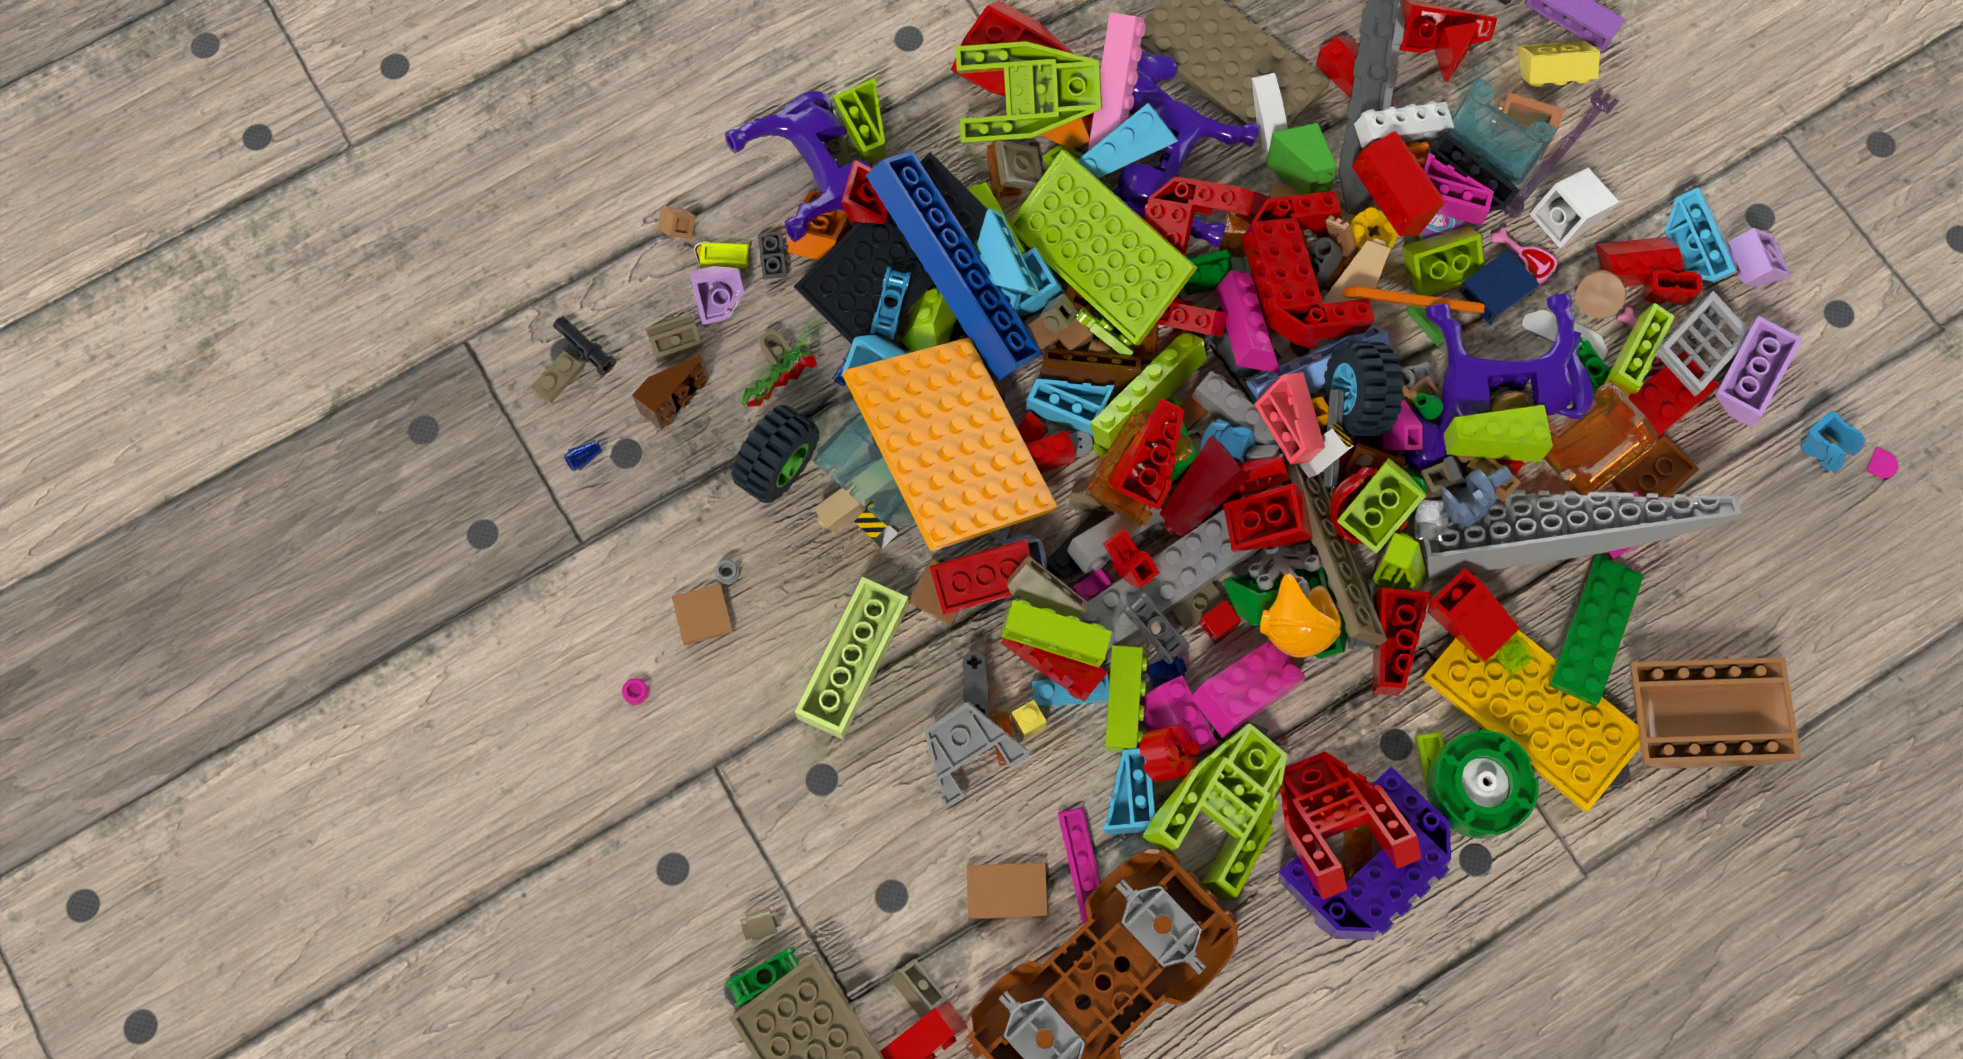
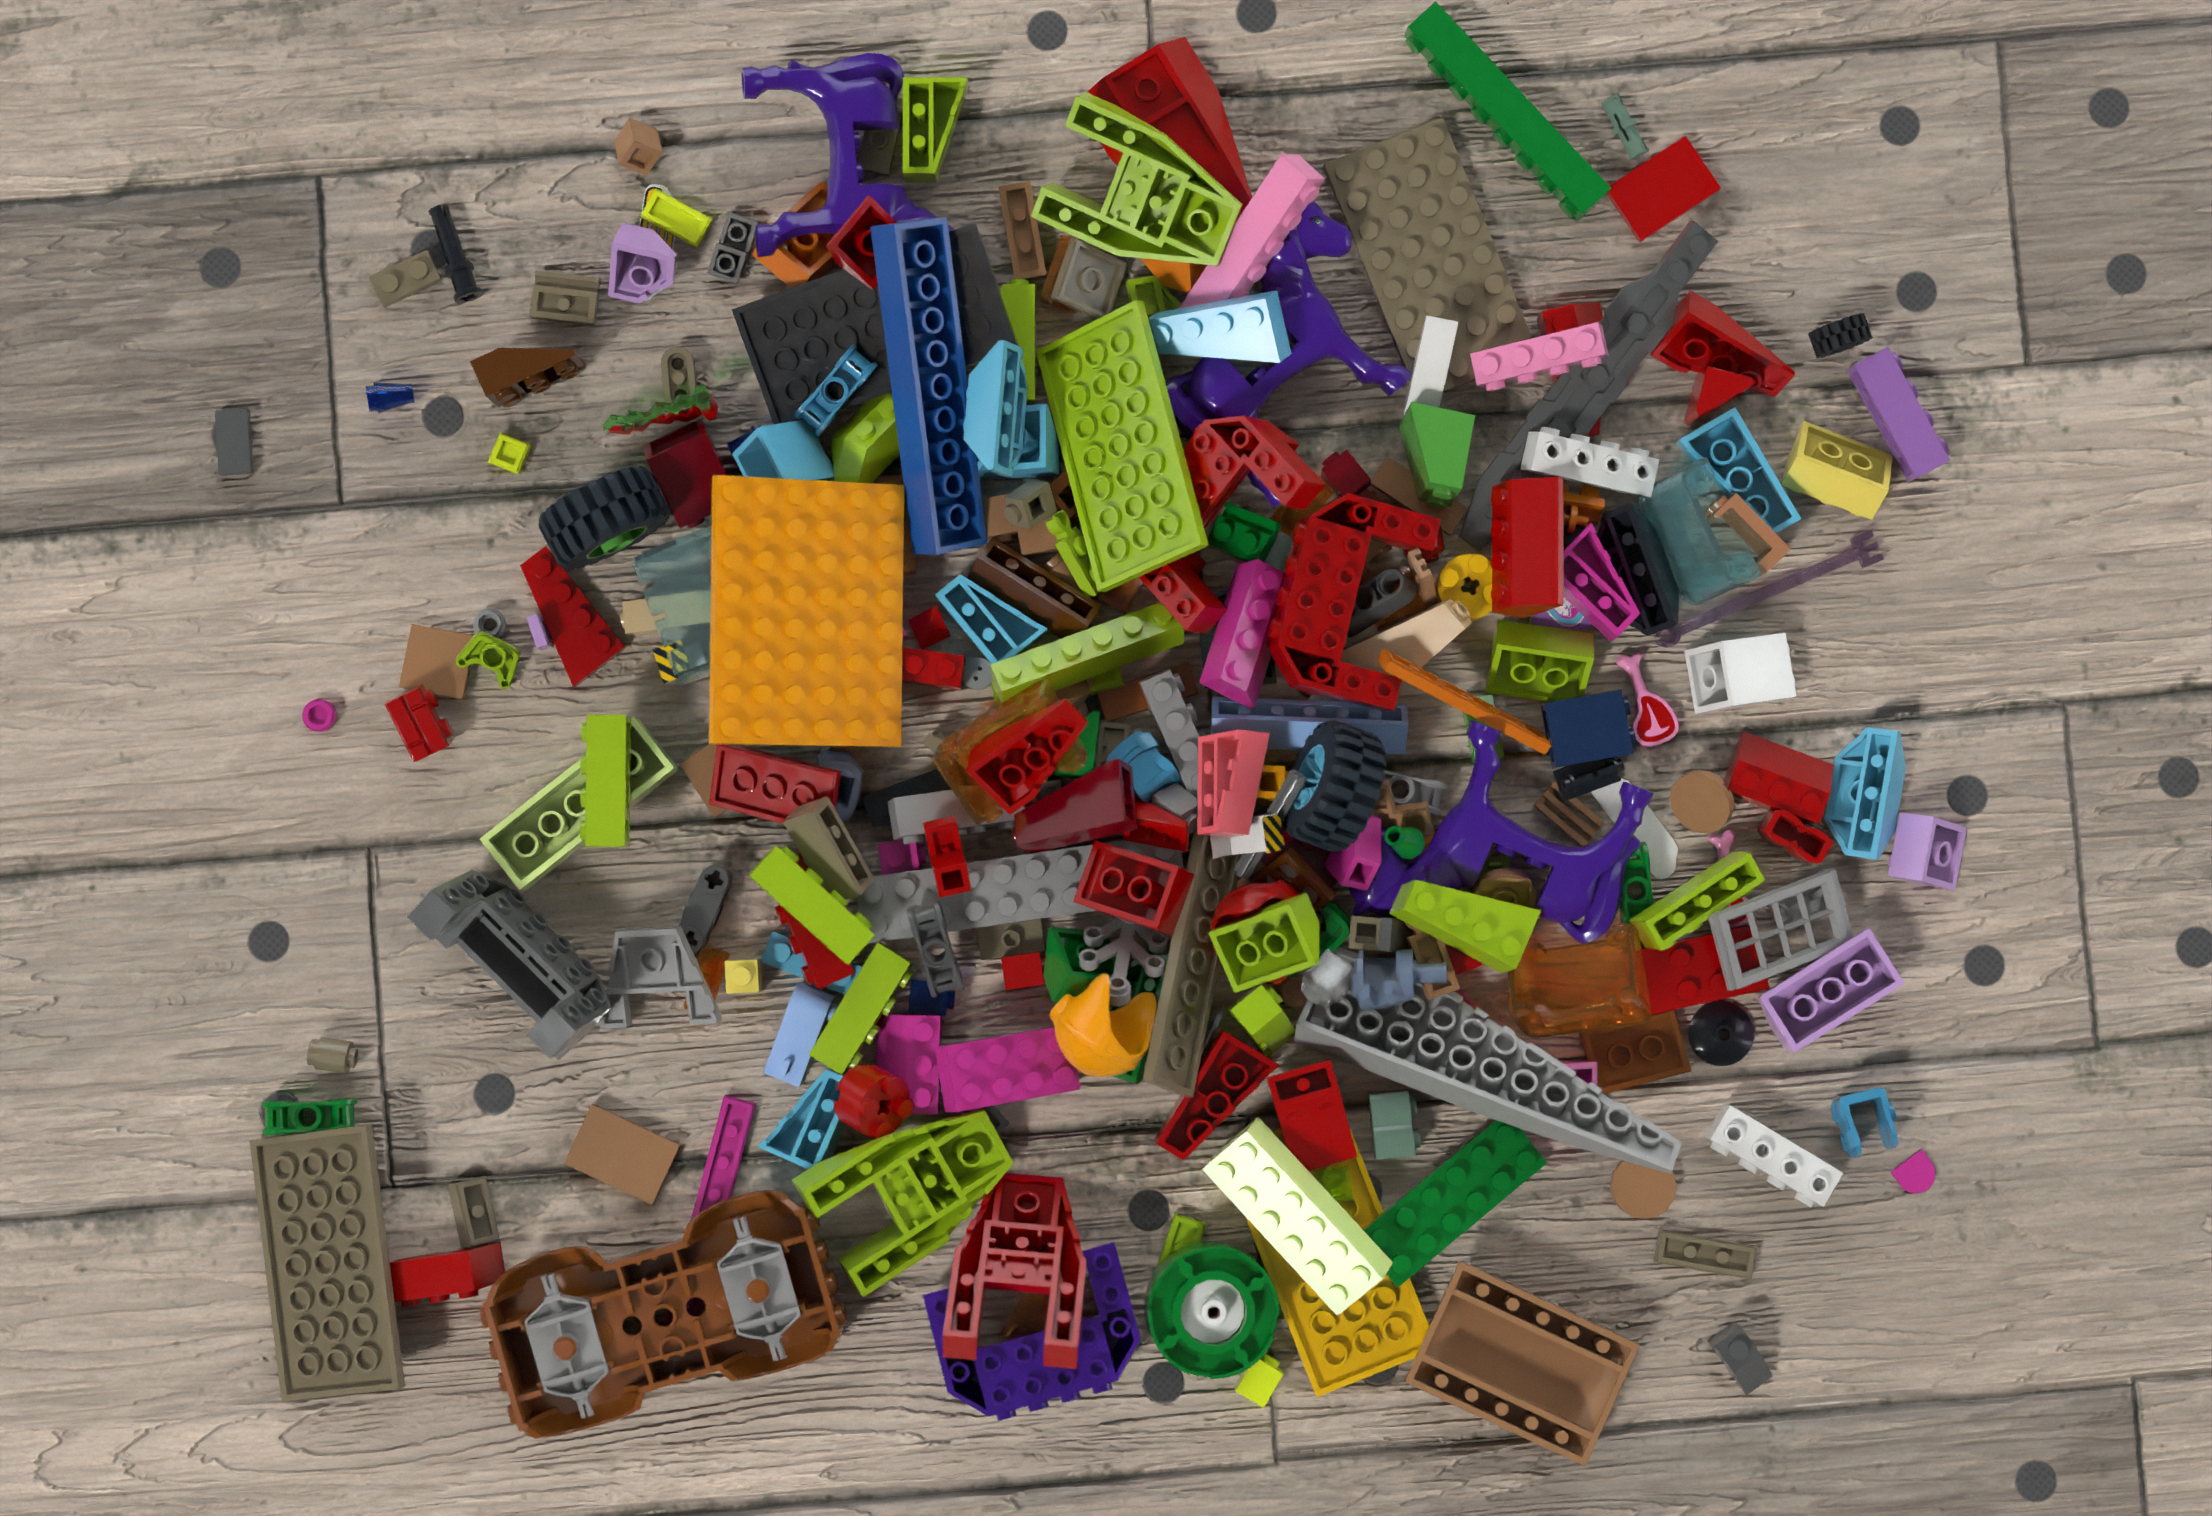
camera: 25 degrees right, 15 degrees up
(486, 537) = (234, 442): none -> dark grey tile
(685, 454) = (509, 453): none -> neon yellow tile
(710, 657) = (419, 723): none -> red brick
(739, 588) = (491, 654): none -> lime piece
(765, 558) = (539, 632): none -> lavender tile
(787, 544) = (573, 622): none -> red wing
(812, 772) = (519, 955): none -> dark grey wedge
(821, 402) = (684, 471): none -> dark red slope
(867, 624) = (607, 780): none -> lime brick
(958, 158) = (1022, 231): none -> medium nougat plate
(1088, 741) = (799, 1032): none -> light blue door
(1336, 71) = (1540, 355): none -> bright pink brick
(1500, 77) = (1741, 468): none -> medium azure wedge
(1503, 337) = (1589, 831): none -> medium nougat tile
(1505, 685) = (1298, 1216): none -> yellowish green brick
(1519, 315) = (1587, 777): none -> black hinge
(1527, 600) = (1392, 1124): none -> sand green brick
(1543, 820) = (1260, 1380): none -> neon yellow brick
(1695, 444) = (1704, 1033): none -> black dish
(1715, 559) = (1642, 1190): none -> medium nougat tile
(1783, 583) = (1705, 1254): none -> dark tan tile
(1788, 495) = (1774, 1155): none -> white brick
(1850, 638) = (1740, 1357): none -> dark grey slope

